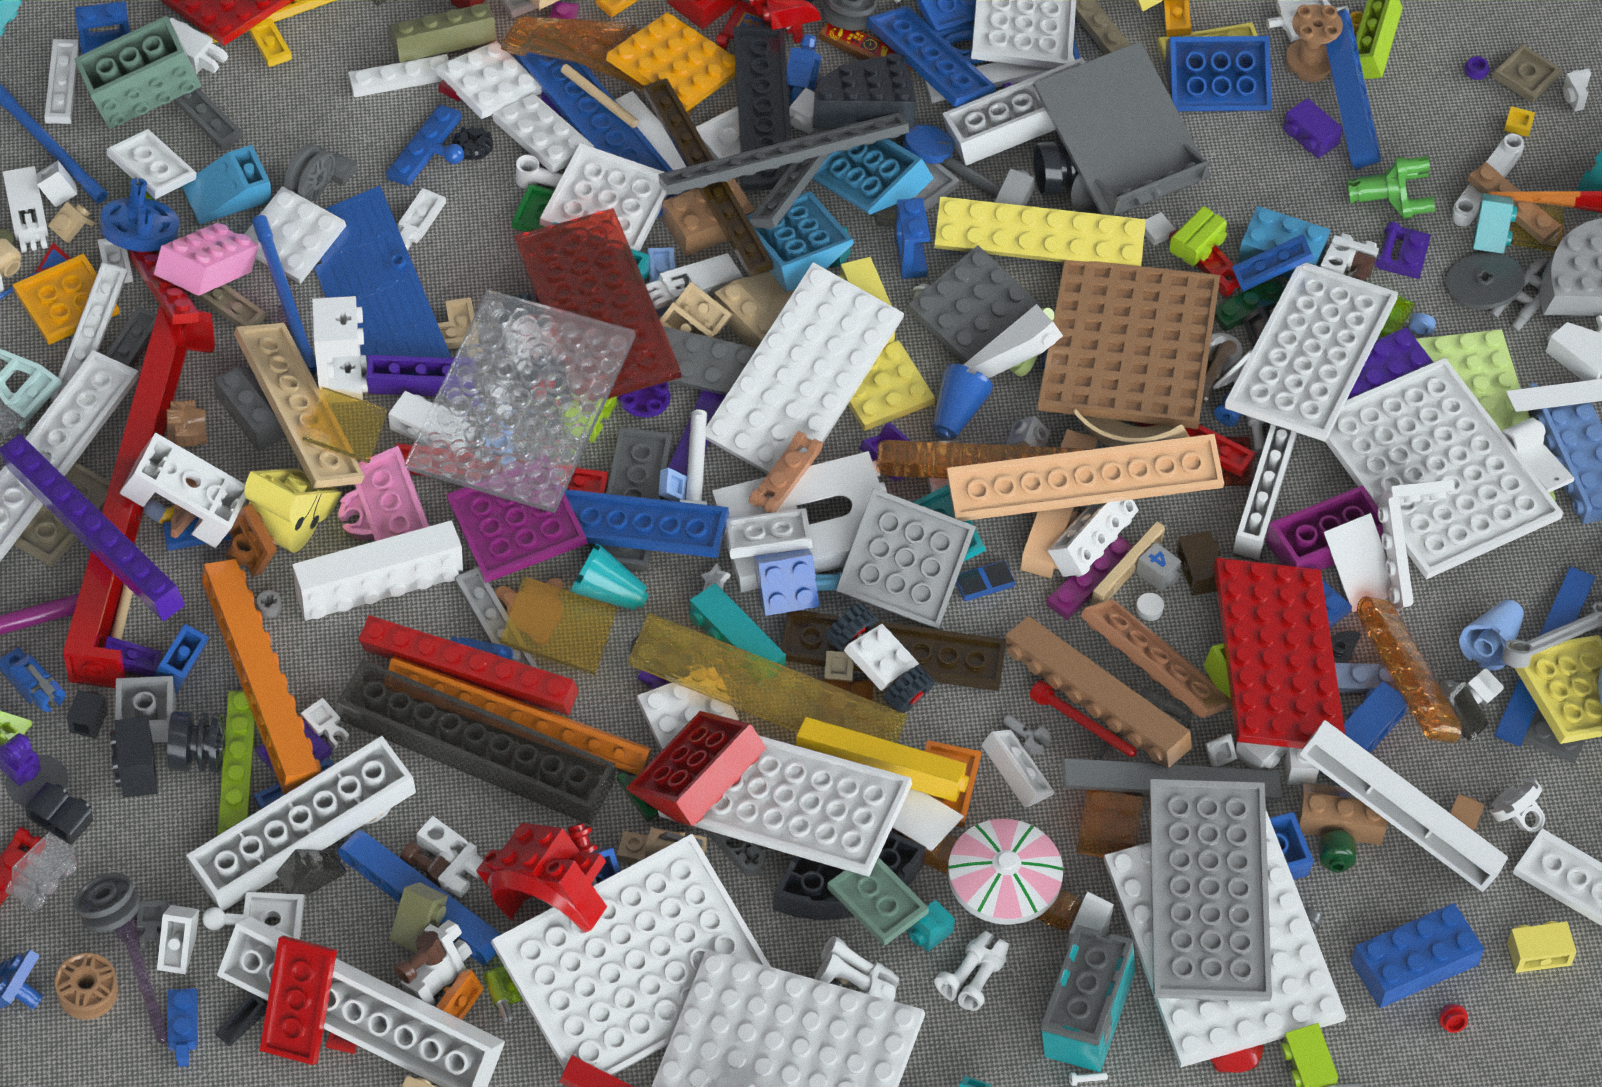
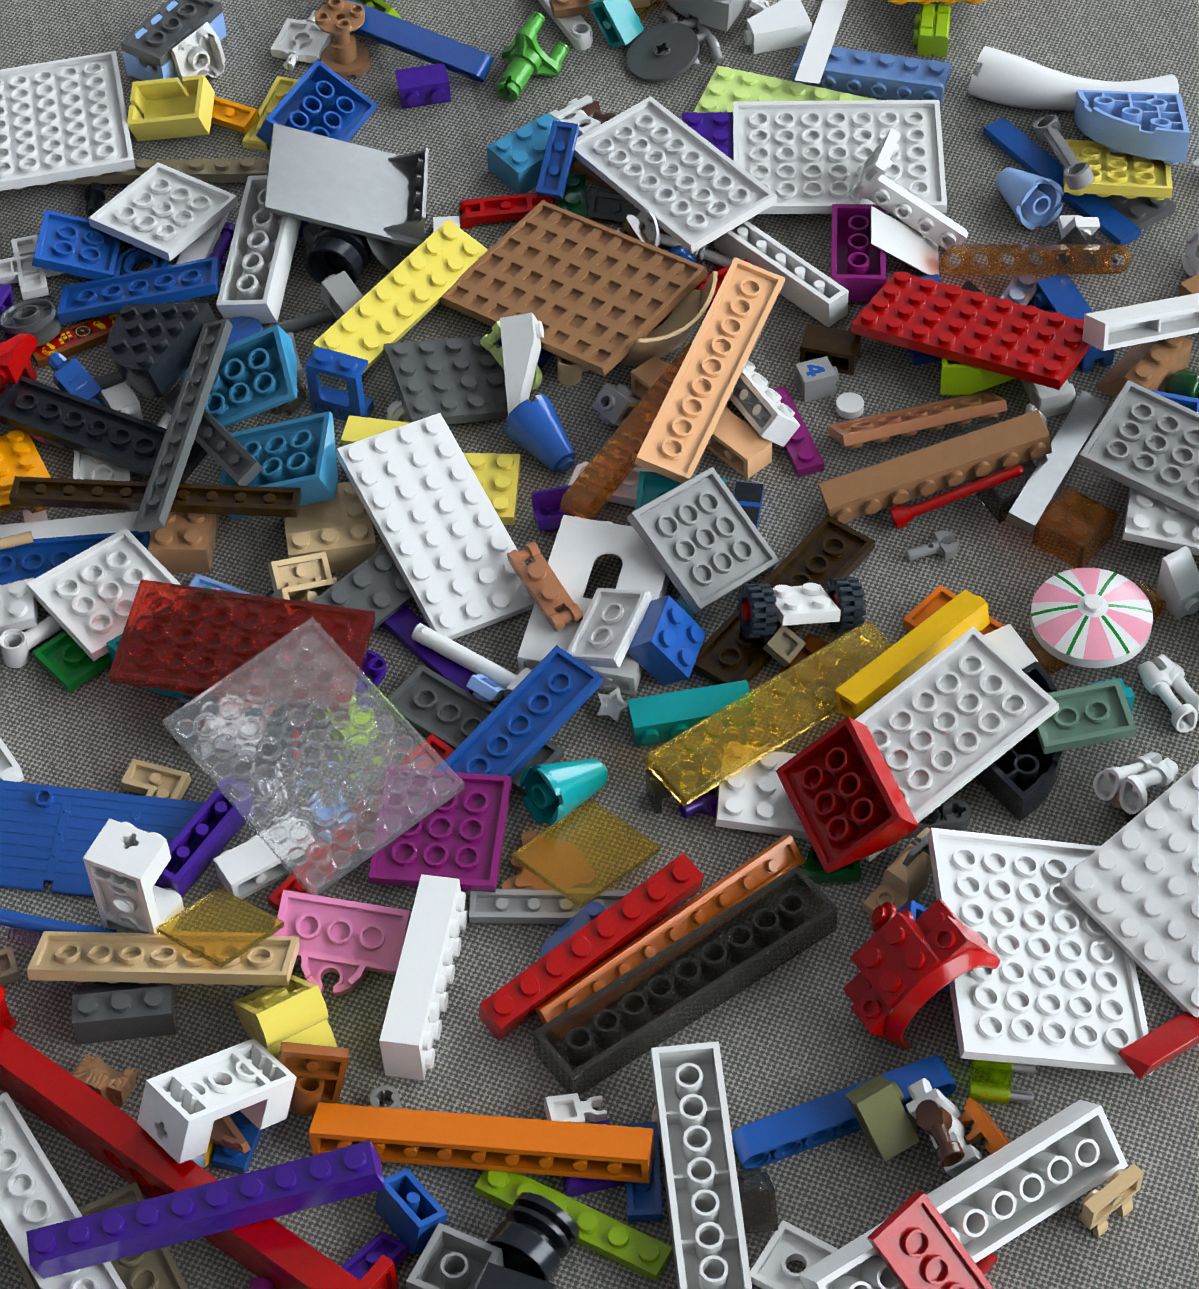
camera: 55 degrees left, 5 degrees down
(452, 858) = (813, 1060): white hips -> none
(707, 274) = (254, 554): white hinge -> none
(1017, 767) = (966, 571): white slope -> none
(1127, 565) = (805, 404): tan tile -> none
(1198, 236) = (489, 197): lime brick -> none
(1299, 769) = (1088, 373): white brick -> none
(1411, 254) = (592, 83): dark purple plate -> none
(1422, 324) = (679, 105): medium blue tile -> none
(1528, 440) = (845, 88): white door -> none

